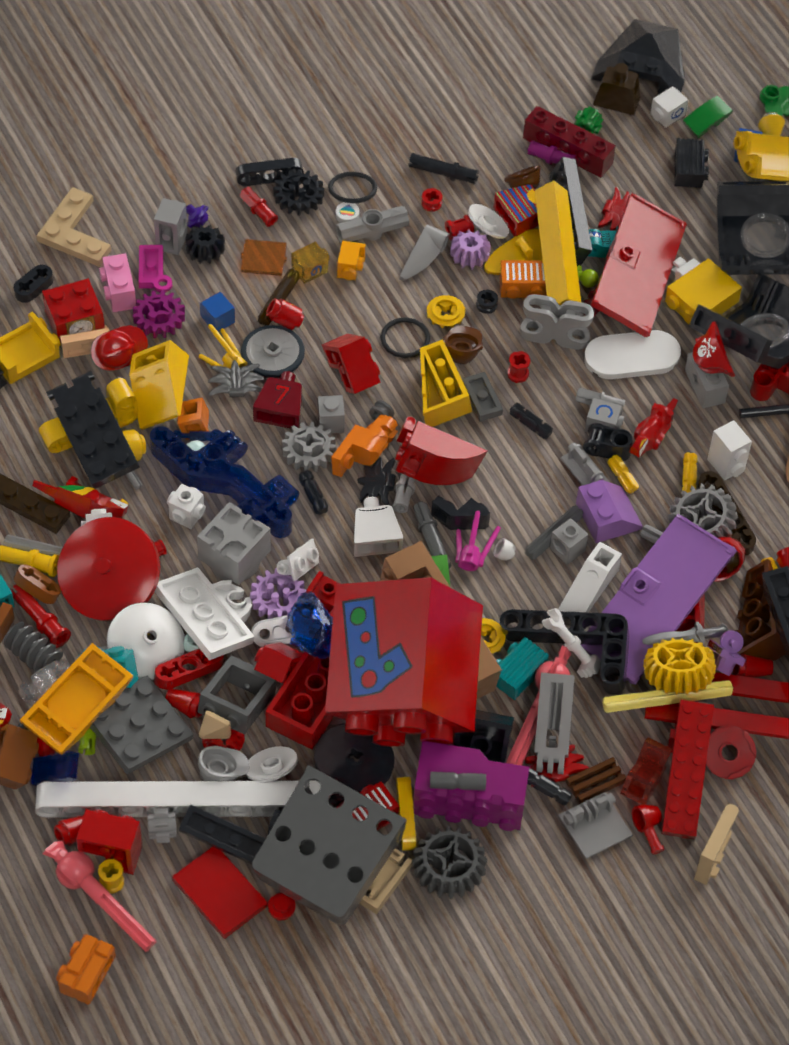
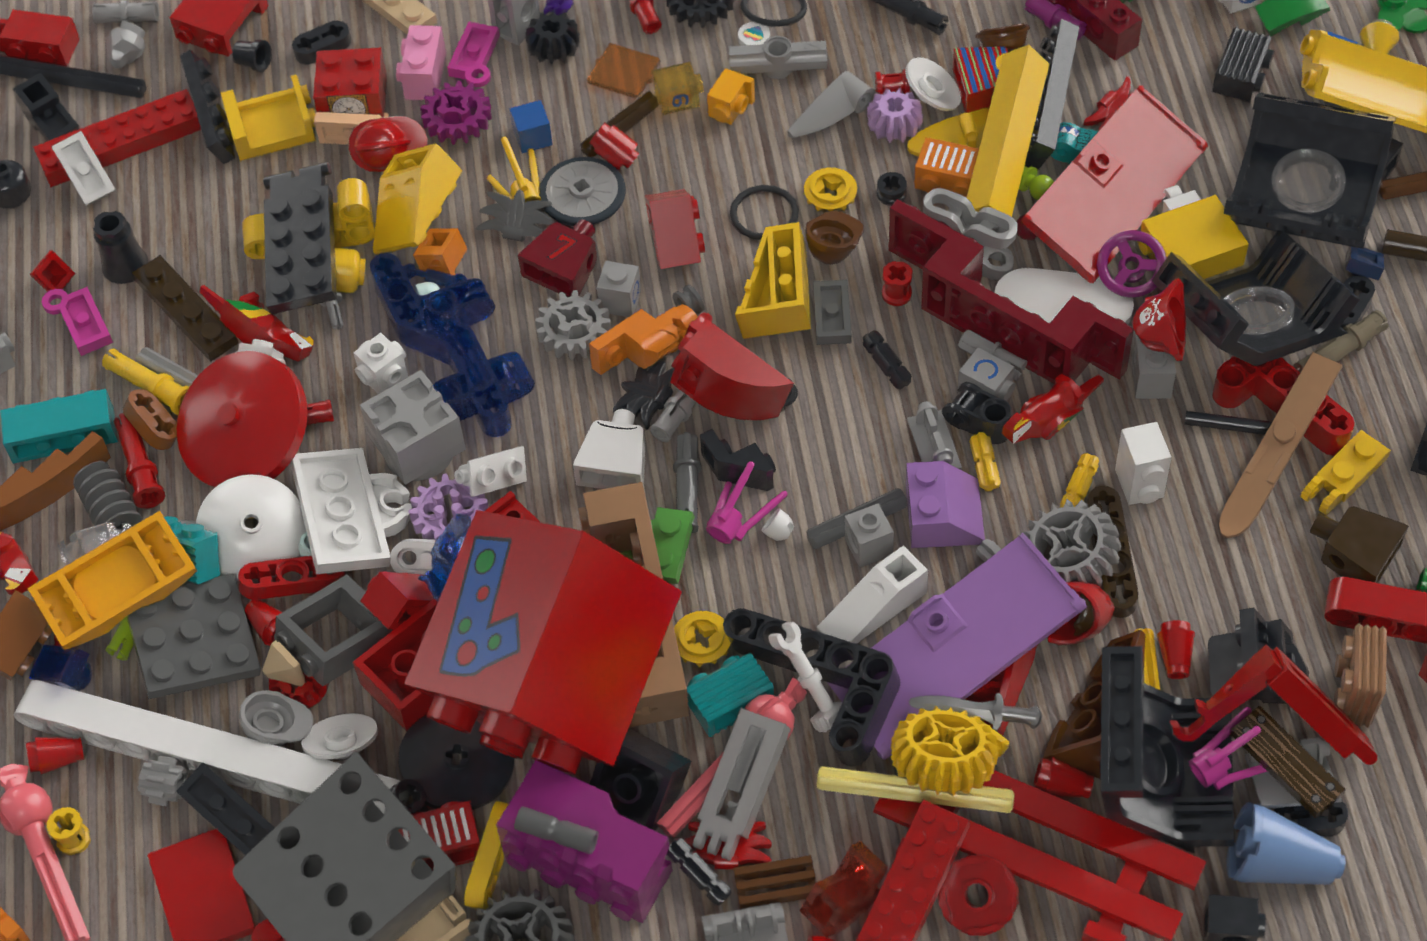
camera: 25 degrees right, 0 degrees up
(111, 837) = (82, 781): red brick -> none
(313, 492) = (556, 386): black axle -> none
(429, 194) = (872, 36): red bush -> none
(575, 370) = (956, 296): none -> dark red bracket
(665, 324) = (1125, 275): none -> magenta piece
(726, 653) = (1026, 748): medium lavender hips -> none

